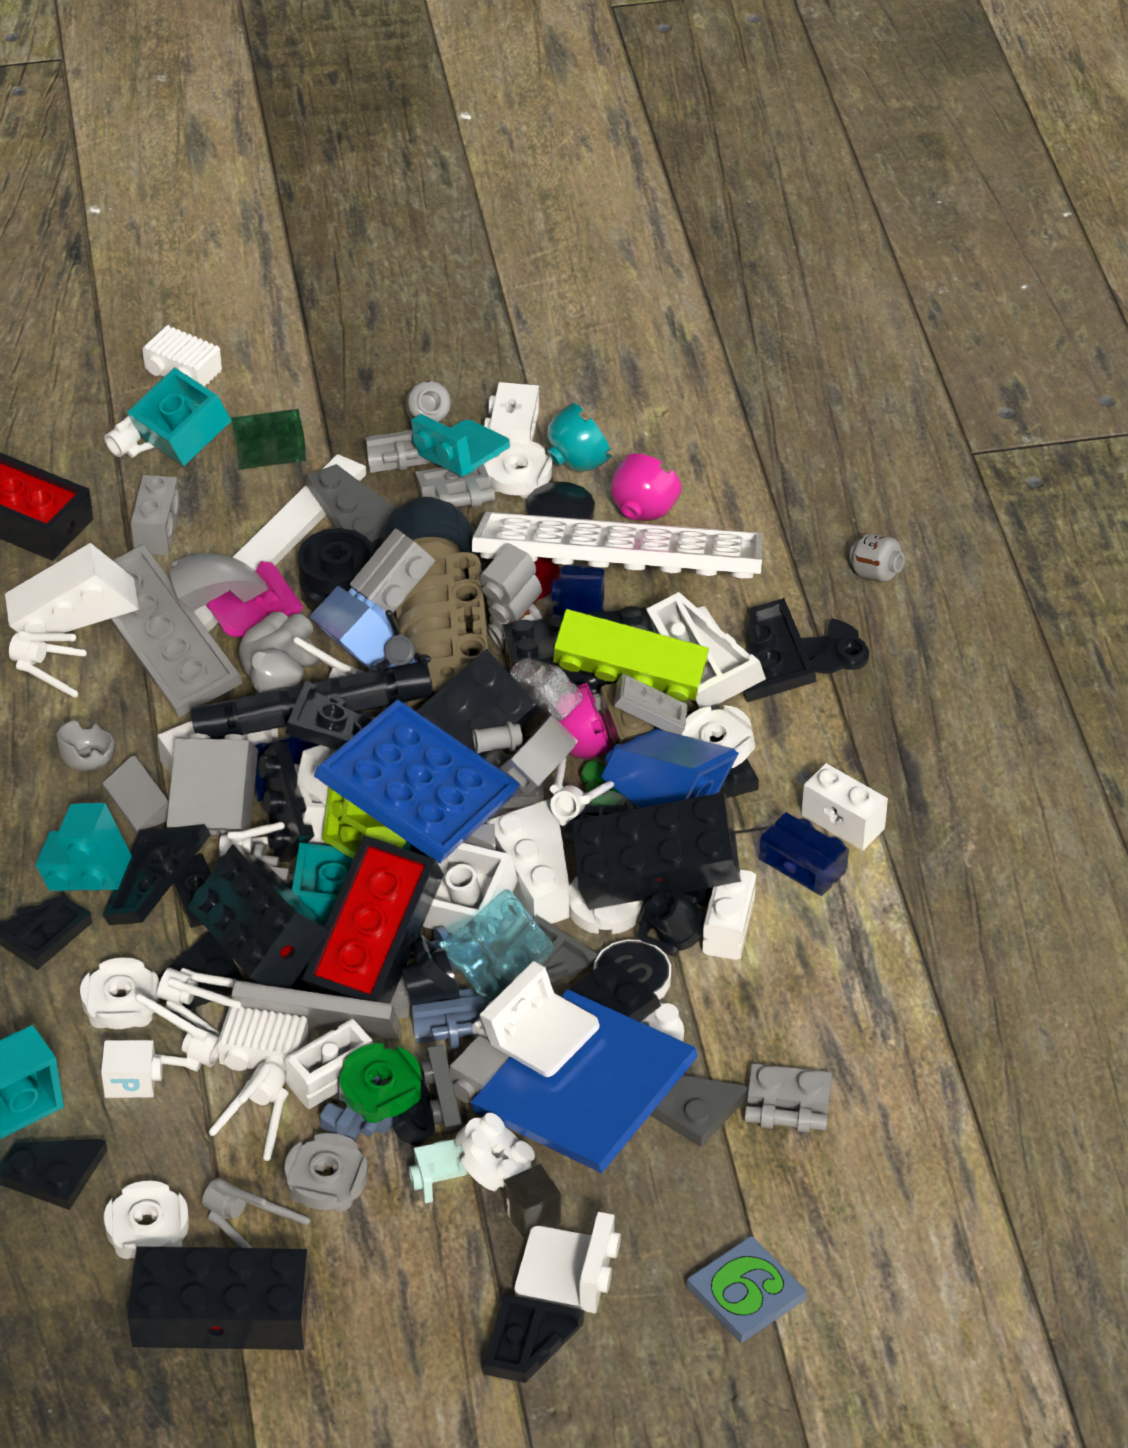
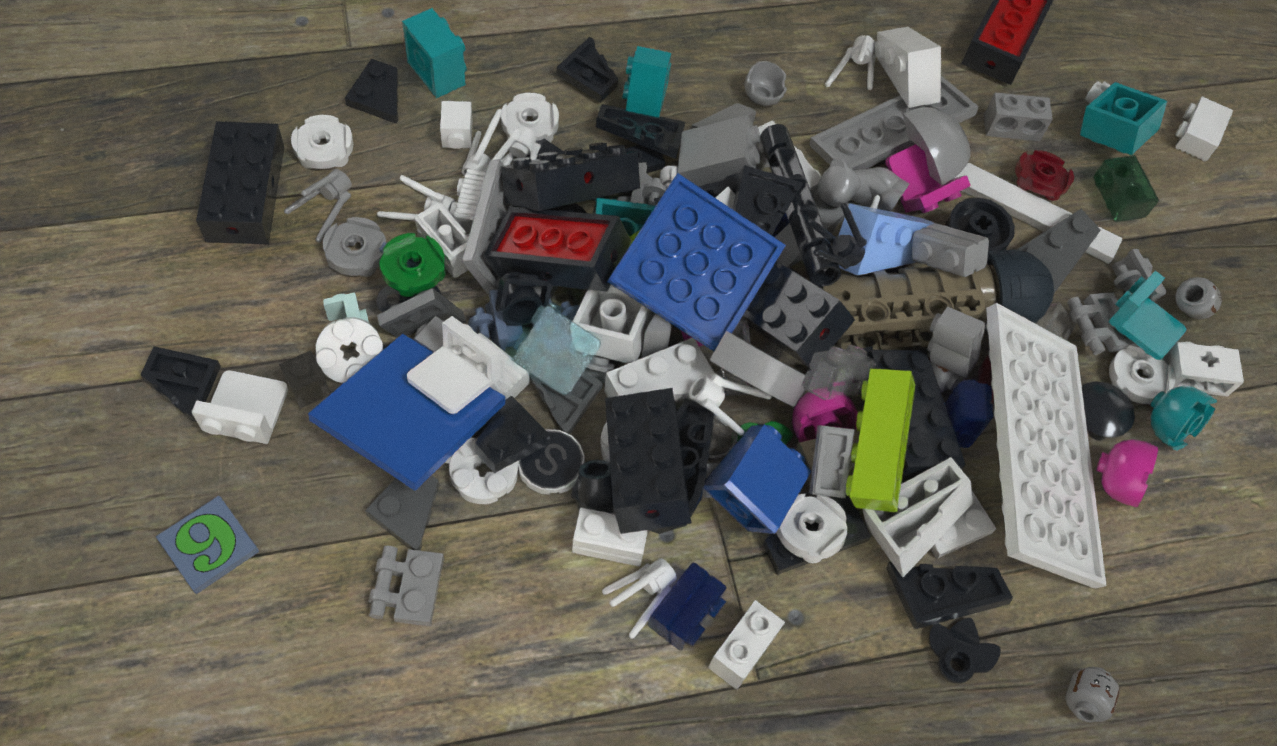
camera: 80 degrees right, 15 degrees up
(244, 505) = (1043, 174): none -> dark red plate
(497, 738) = (759, 326): light grey pin -> none
(775, 881) = (653, 579): none -> white plant

